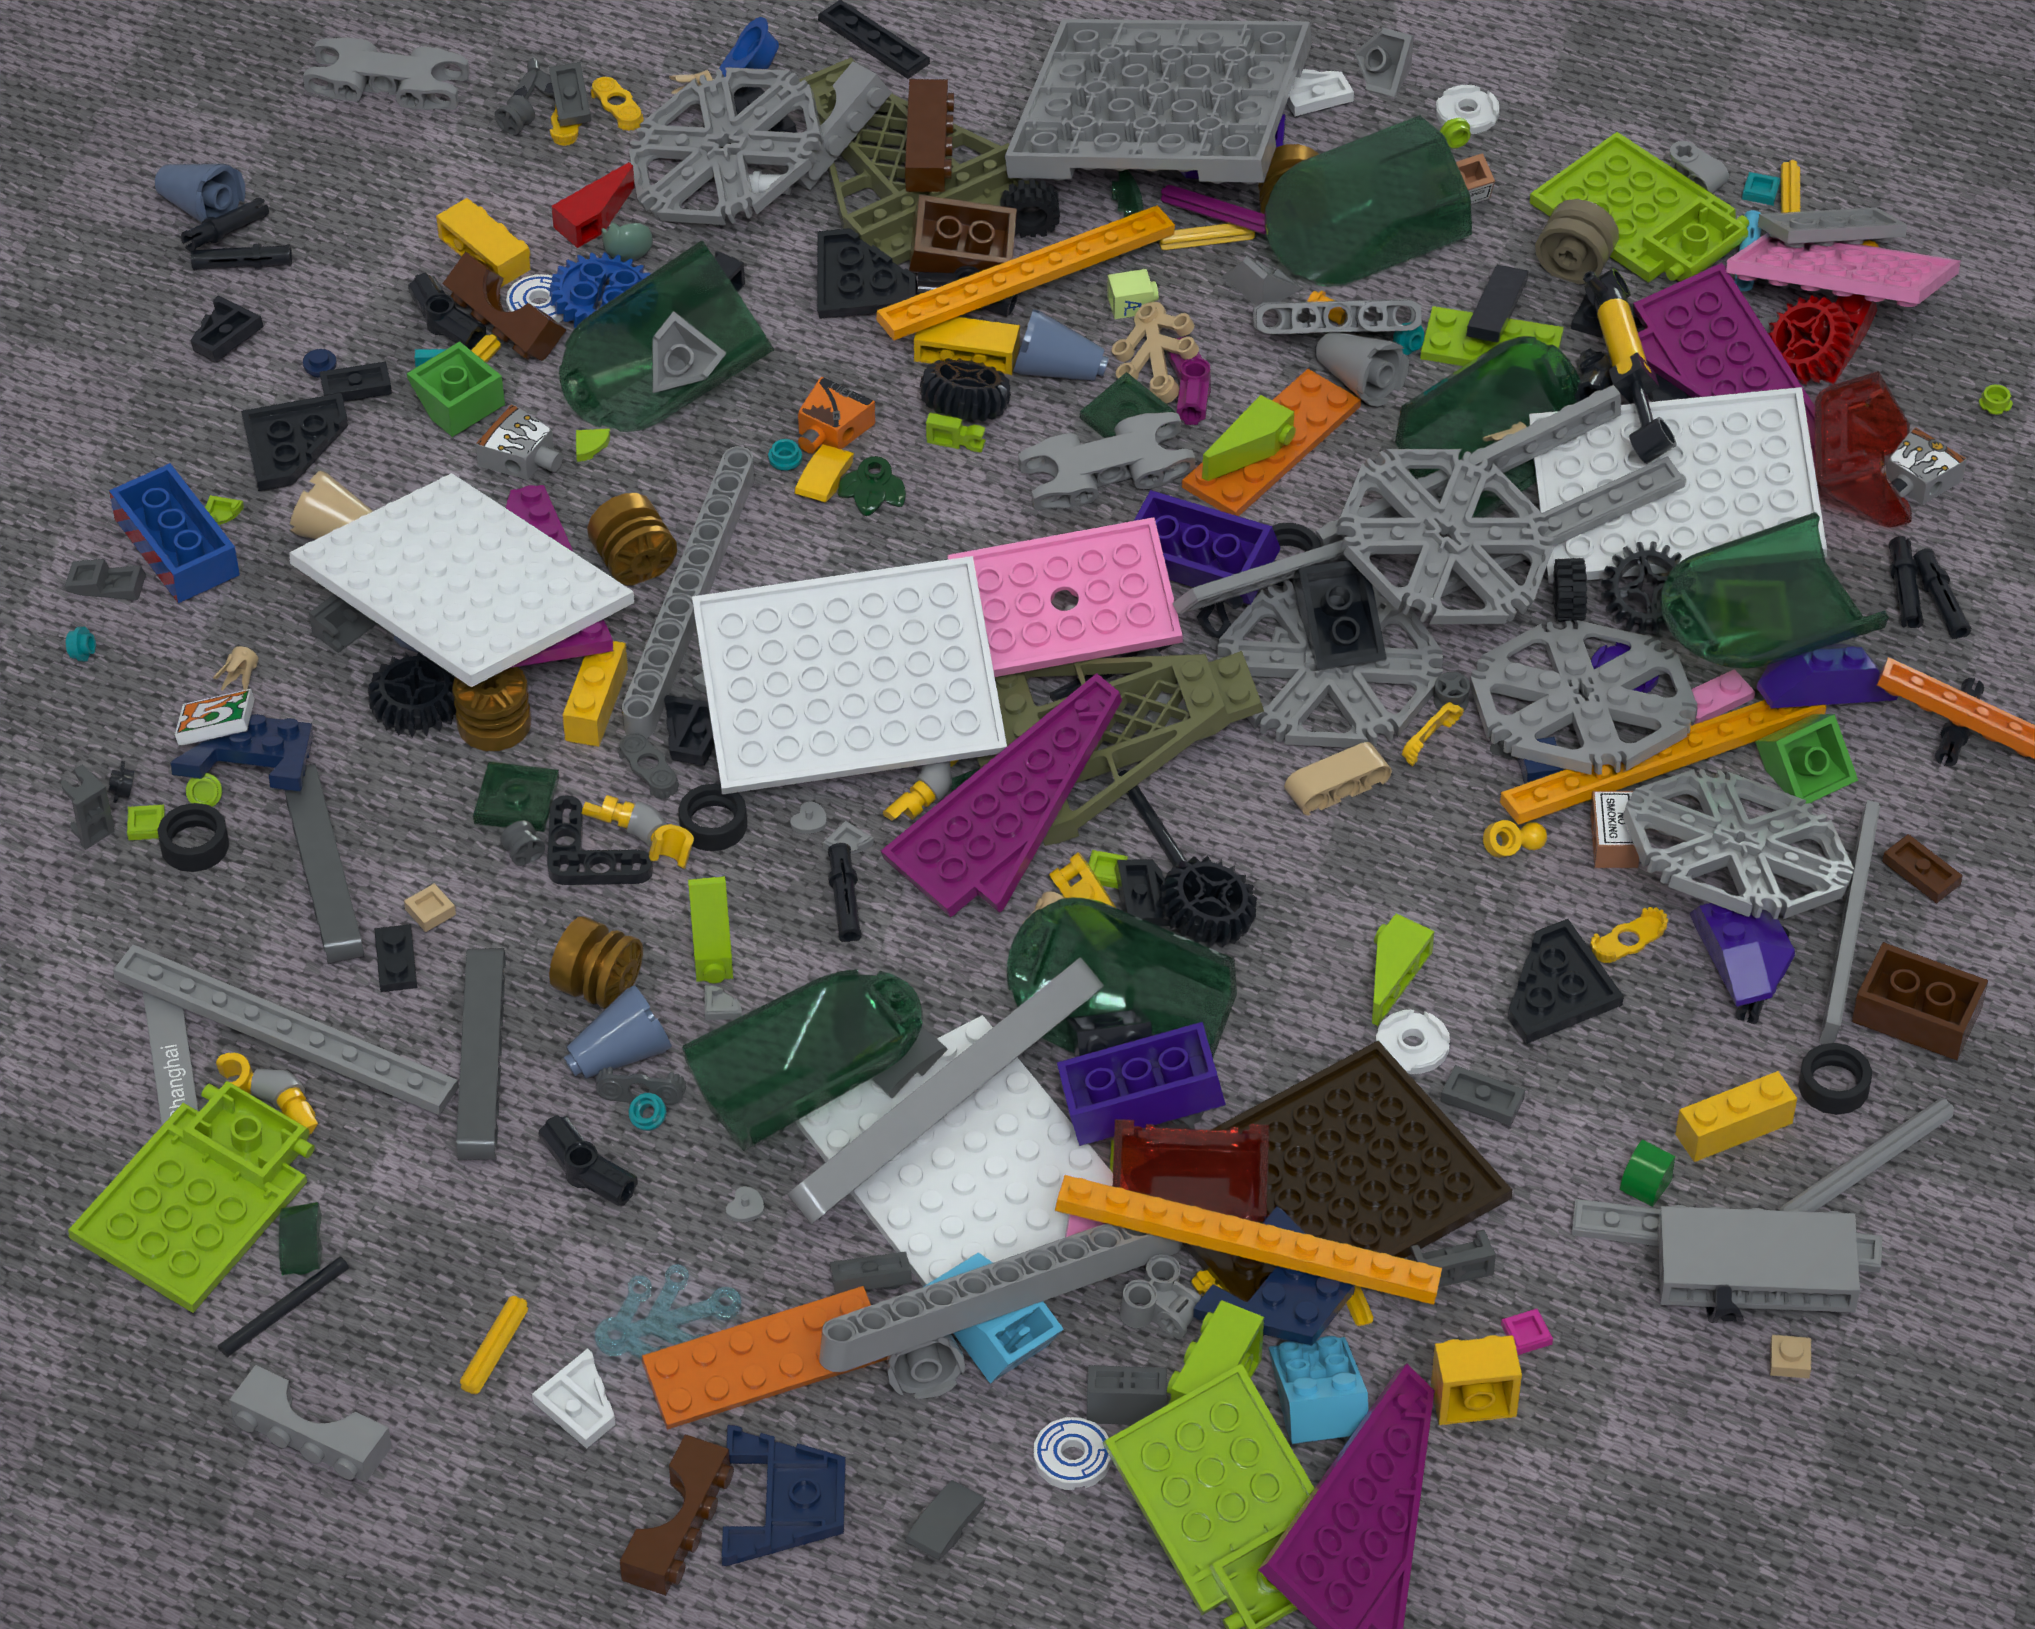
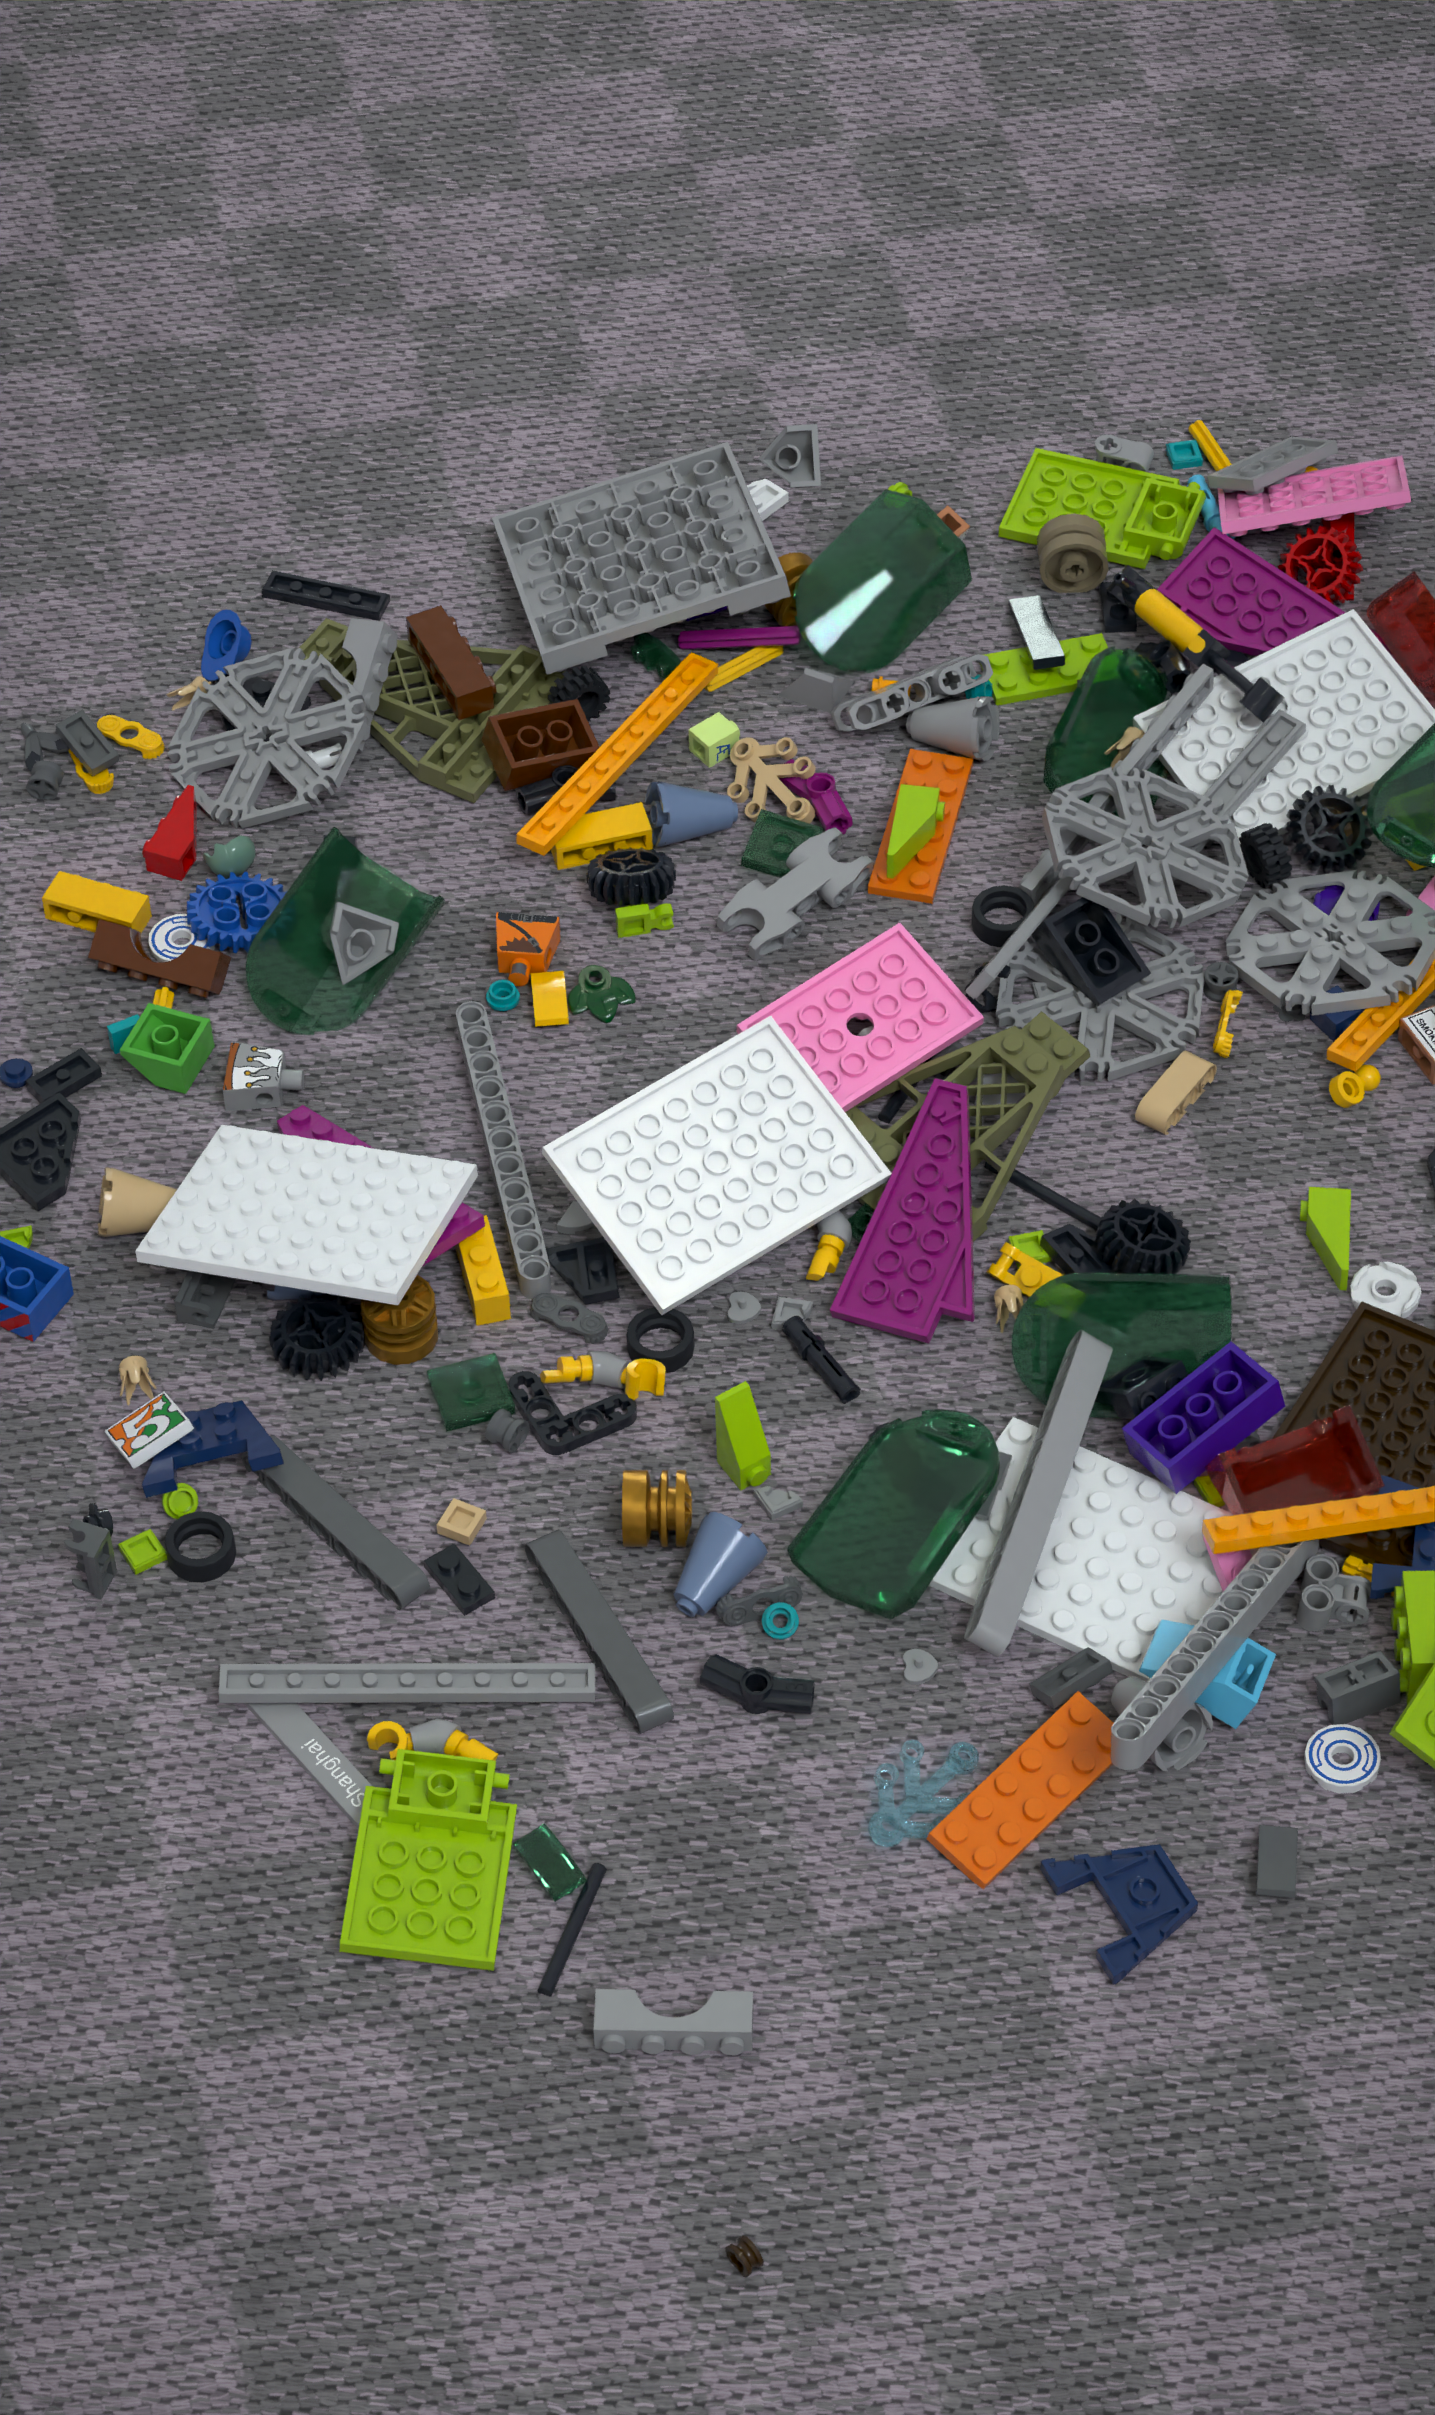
camera: 25 degrees left, 0 degrees up
(441, 313) = (103, 985): black piece -> none
(494, 1345) = (784, 1881): yellow axle -> none
(577, 1400) = (894, 1897): white wing -> none
(591, 442) = (317, 1051): lime tile -> none
(632, 538) = (425, 1119): pearl gold wheel -> none
(658, 1553) = (1055, 1997): reddish brown arch -> none
(857, 276) = (465, 812): black plate -> none
(1206, 542) = (952, 929): dark purple brick -> none
(1485, 106) = (879, 463): white tile -> none

